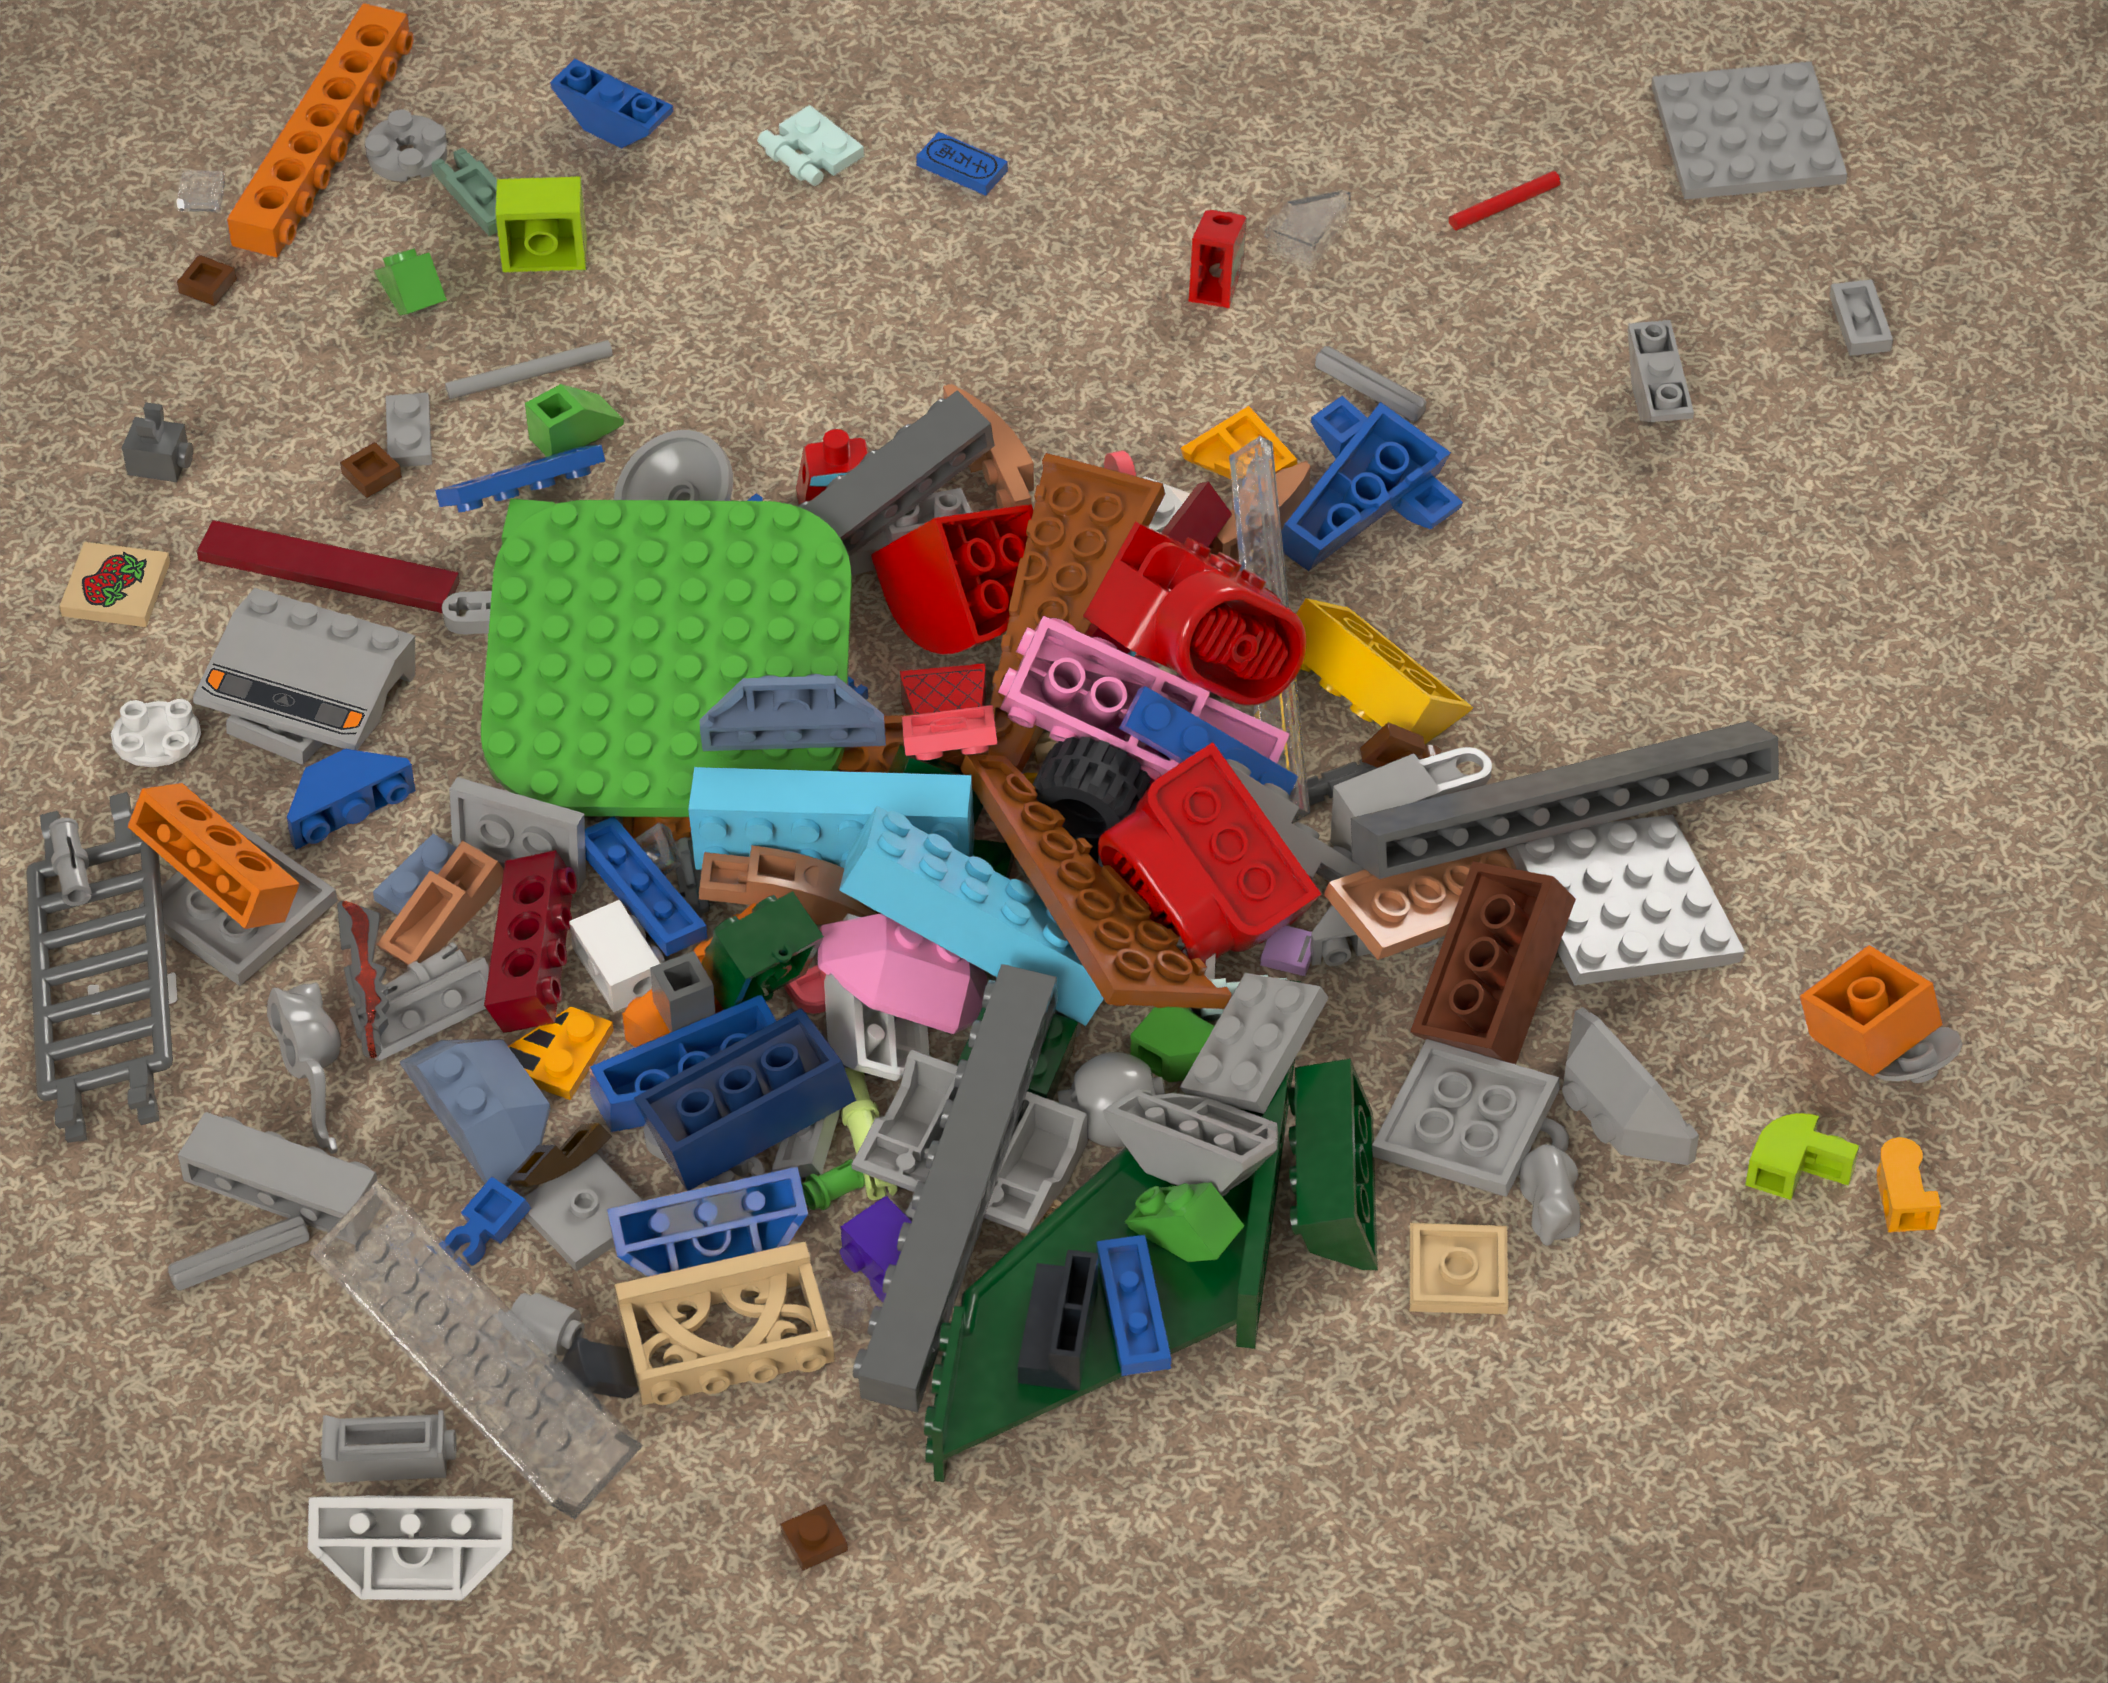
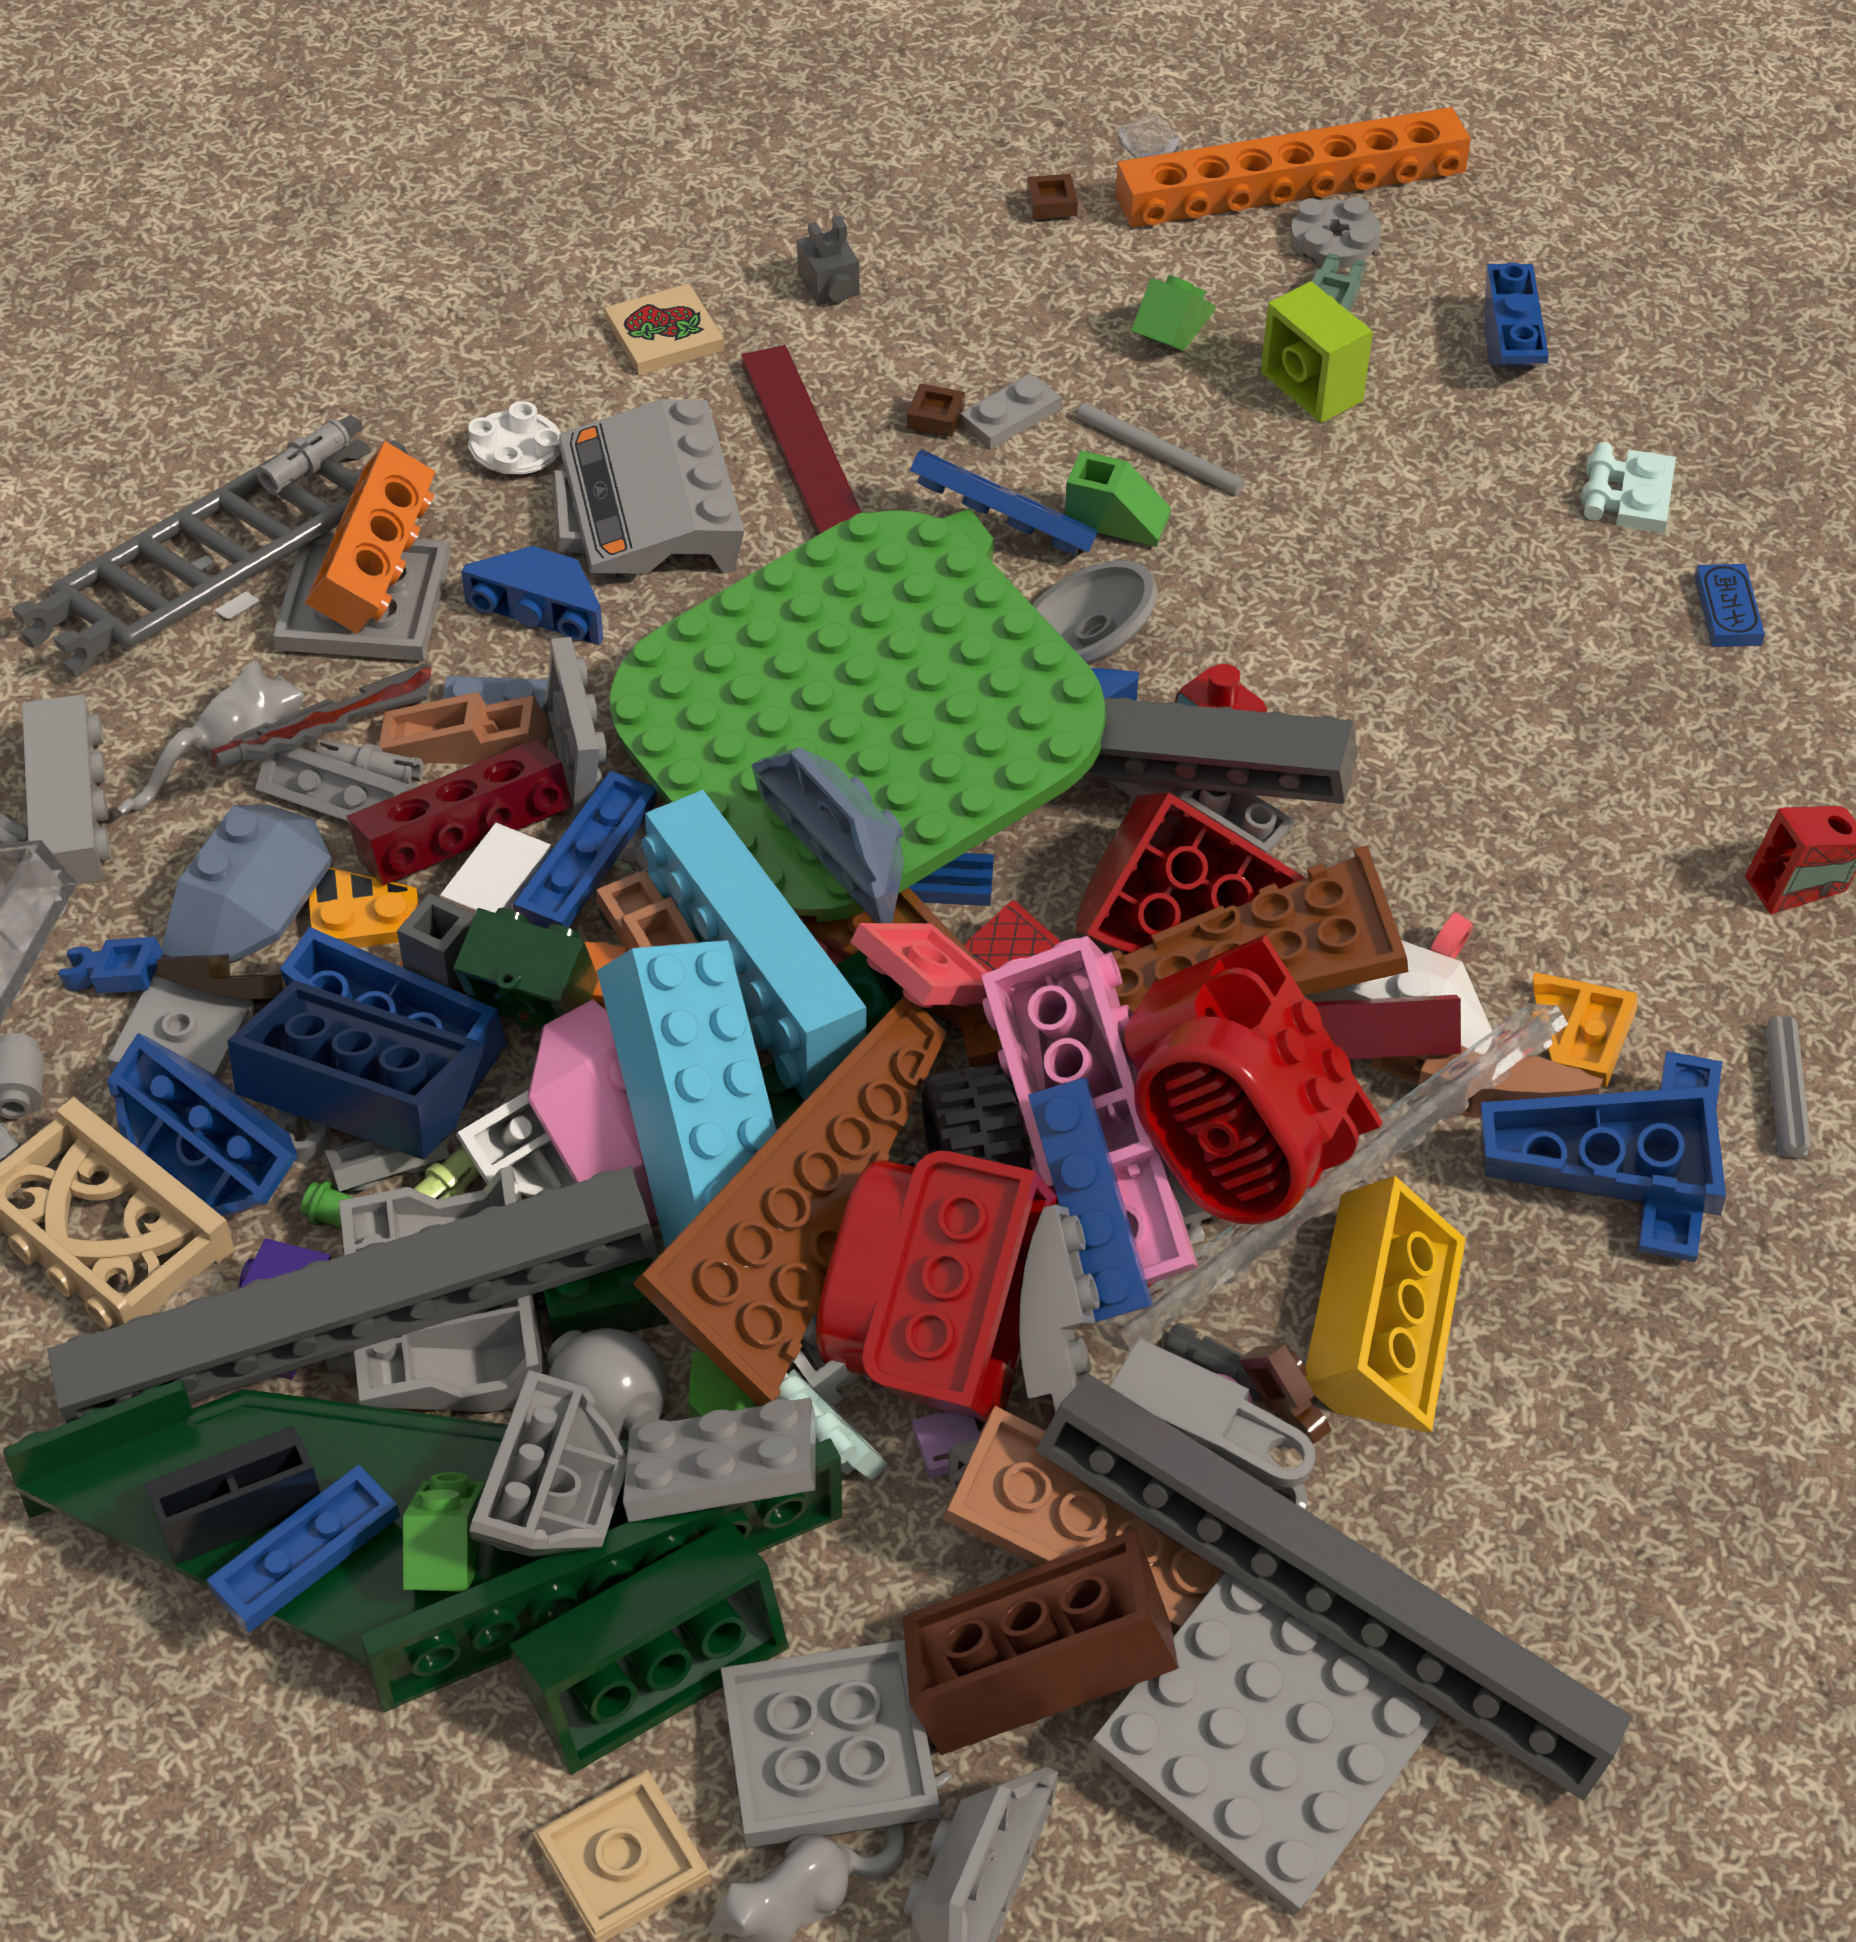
camera: 55 degrees right, 0 degrees up
(1006, 463) = (1380, 810): nougat slope -> none

